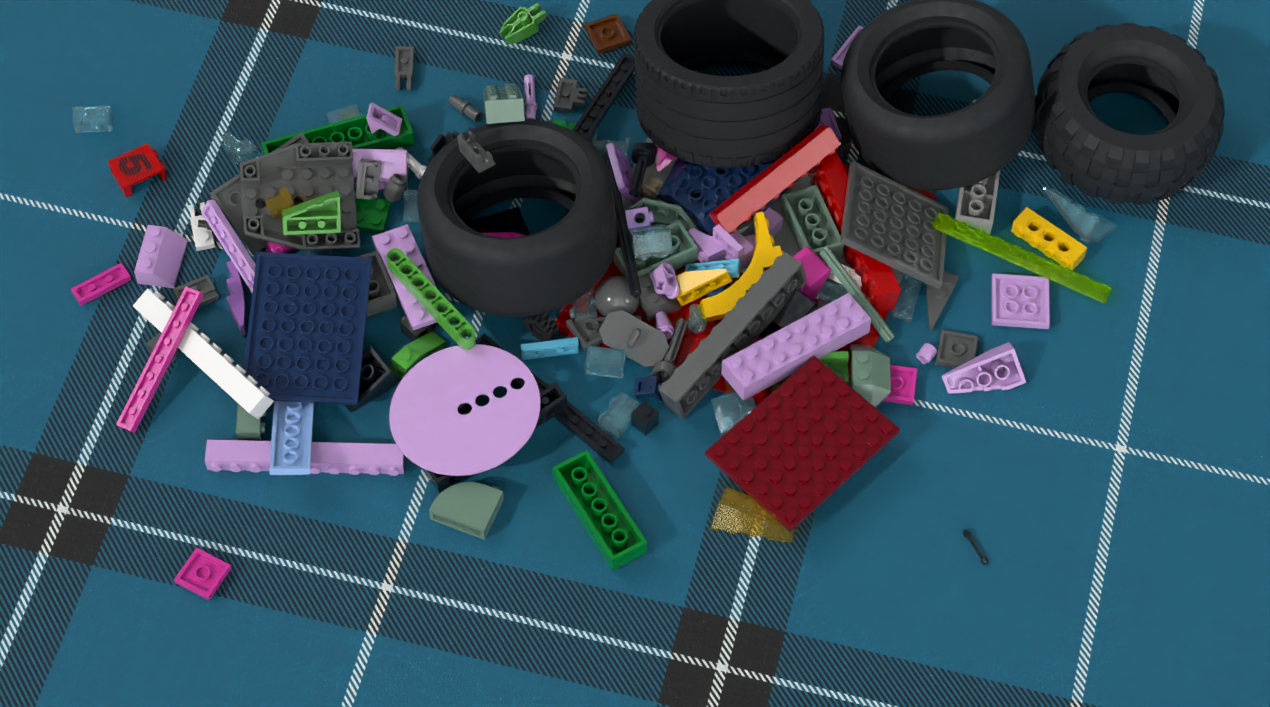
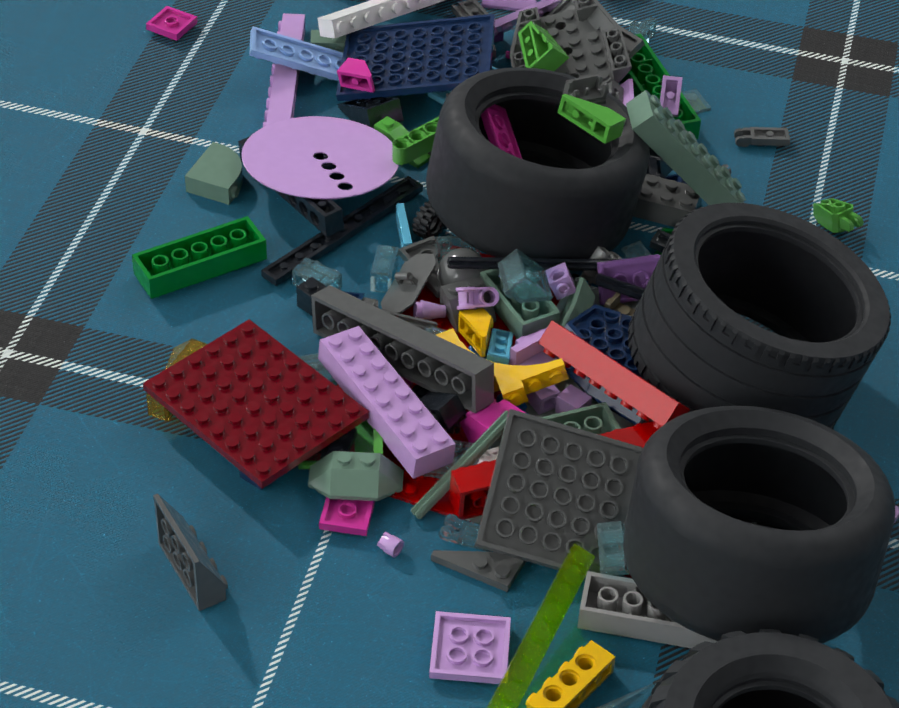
camera: 90 degrees right, 15 degrees down
(280, 202) = (559, 32): clear yellow panel -> none
(341, 377) = (355, 75): none -> dark pink slope
(521, 142) = (593, 118): none -> bright green slope
(938, 197) = (611, 548): none -> clear light blue brick
(955, 348) = (397, 579): dark grey tile -> none
(966, 487) = (188, 556): none -> dark grey slope
(967, 533) = (95, 581): black hinge -> none
(986, 372) = (363, 605): lavender wedge -> none

